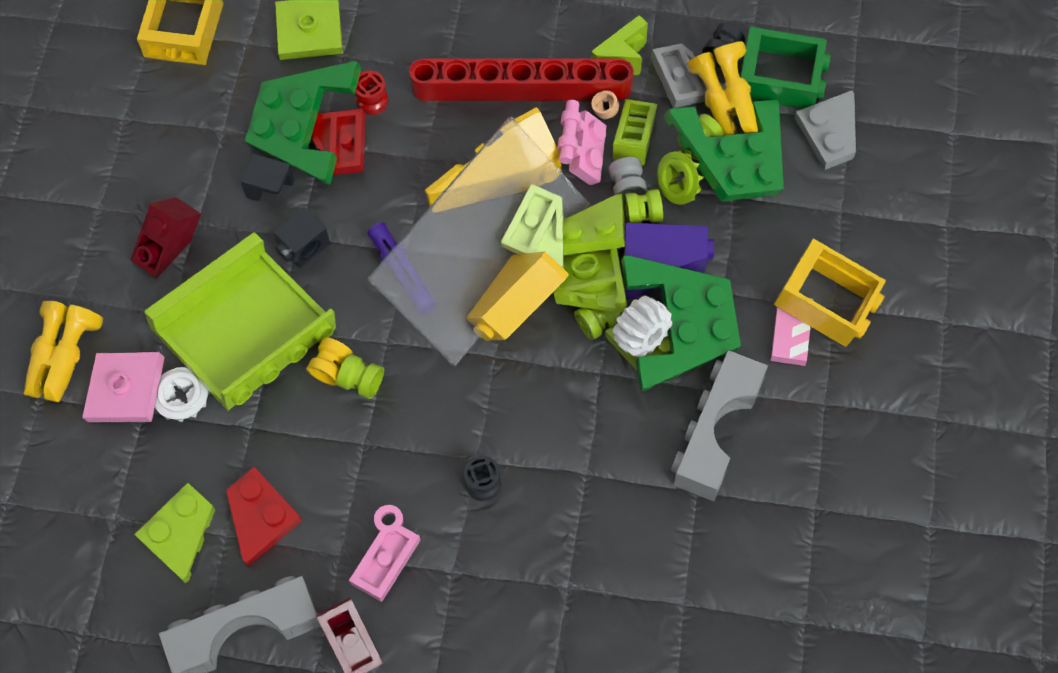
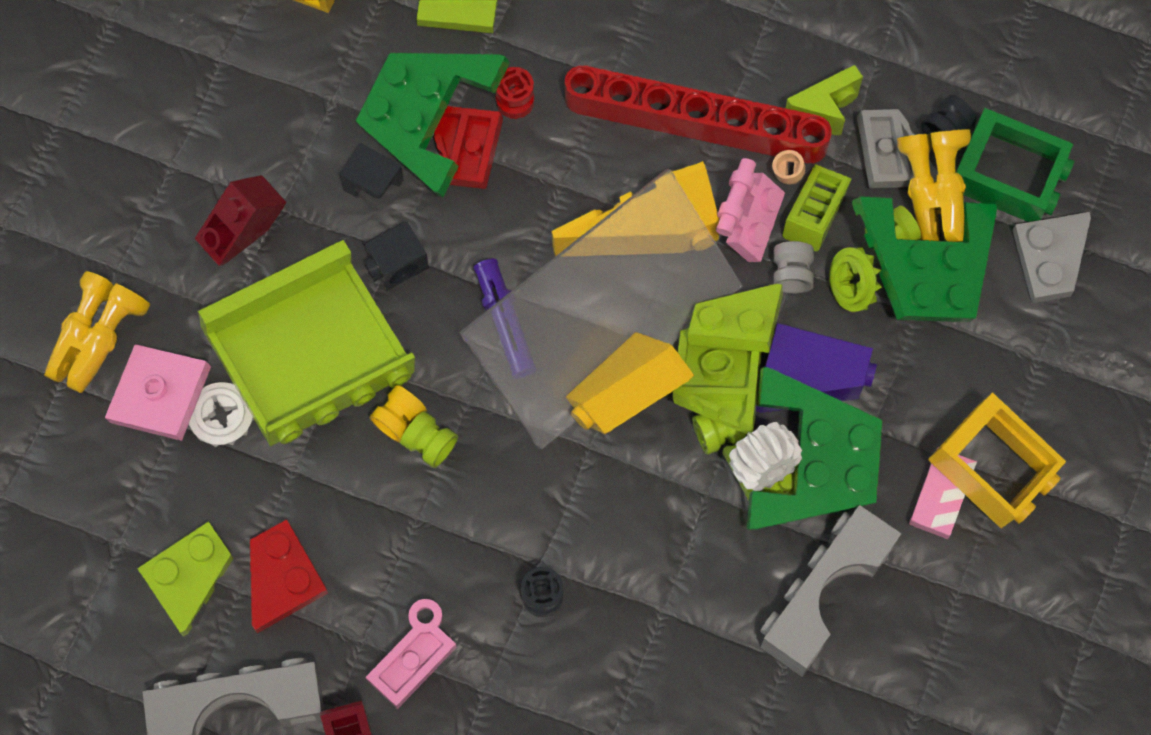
camera: 10 degrees right, 5 degrees up
(537, 225) = (672, 307): yellowish green wing -> none
(636, 208) = (794, 306): lime wheel -> none

